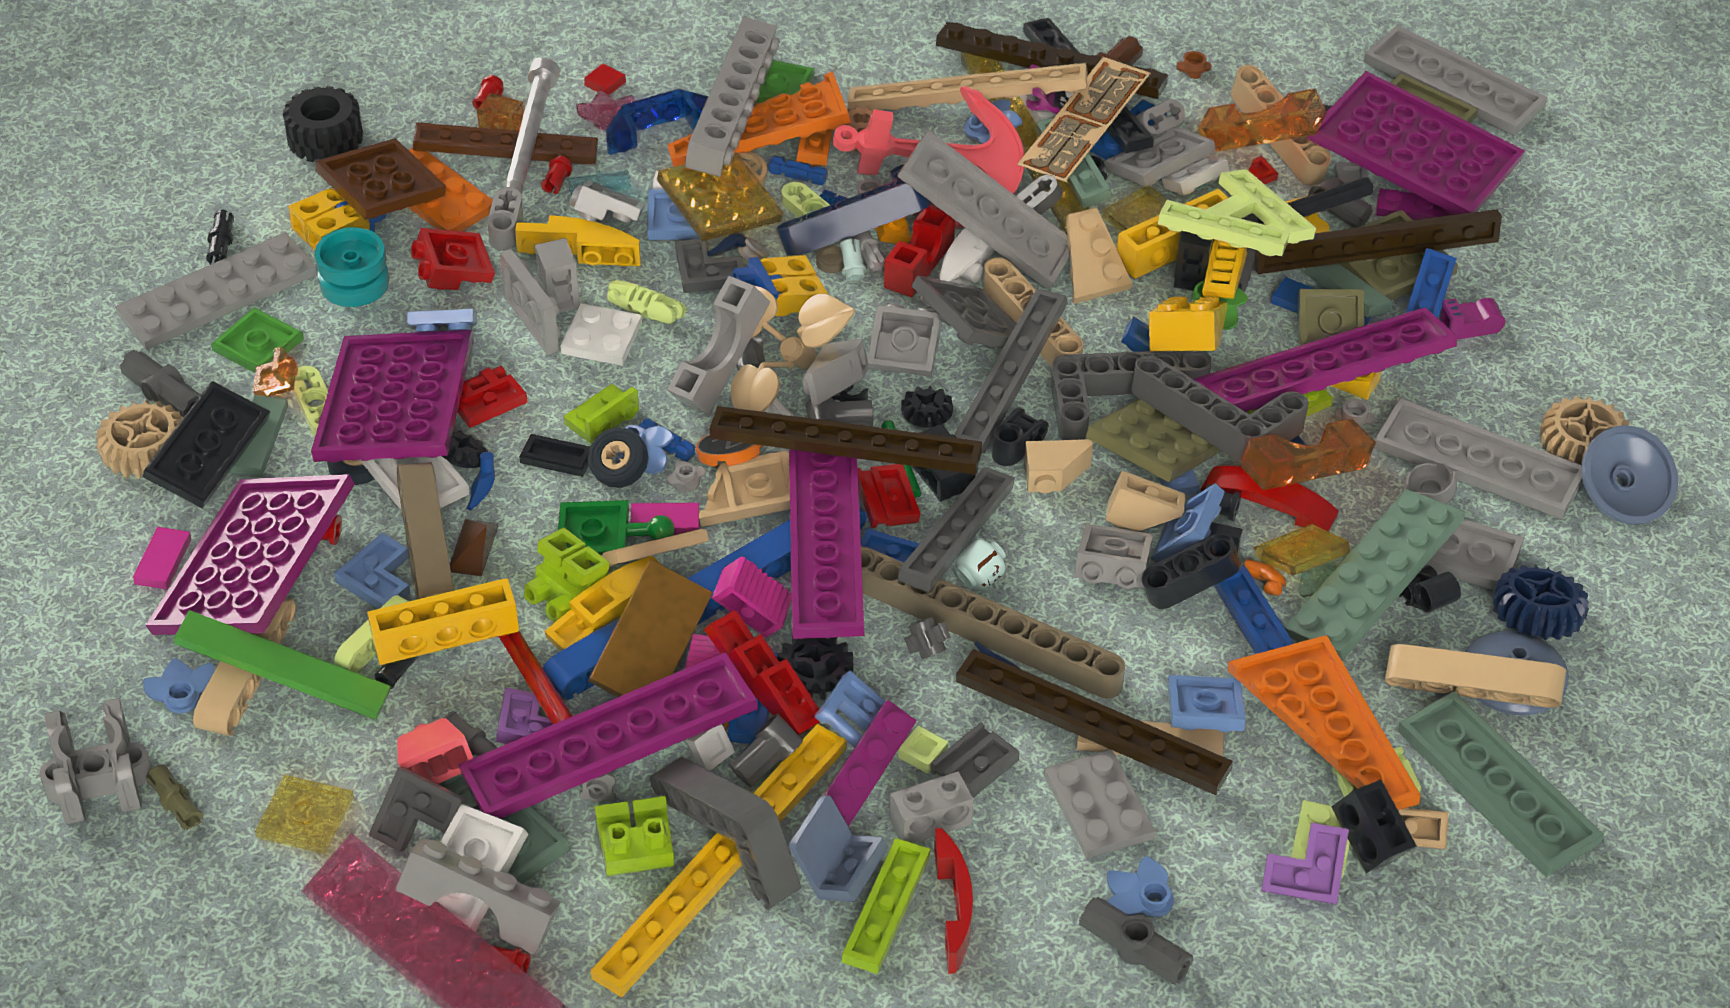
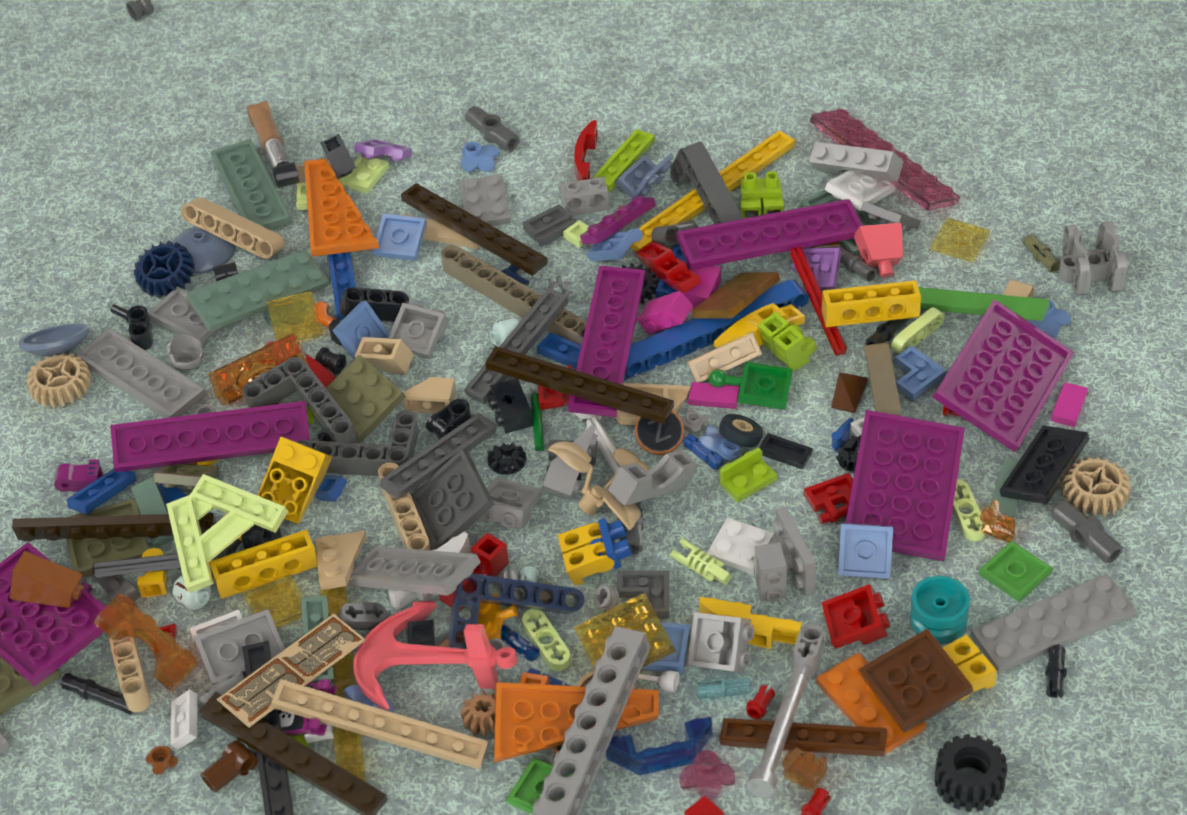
camera: 165 degrees left, 0 degrees up
(1187, 92) = (184, 719): none -> white plate
(1407, 136) = (44, 582): none -> dark orange slope
(1531, 523) = (139, 324): none -> black beam
(1559, 925) = (272, 143): none -> piece

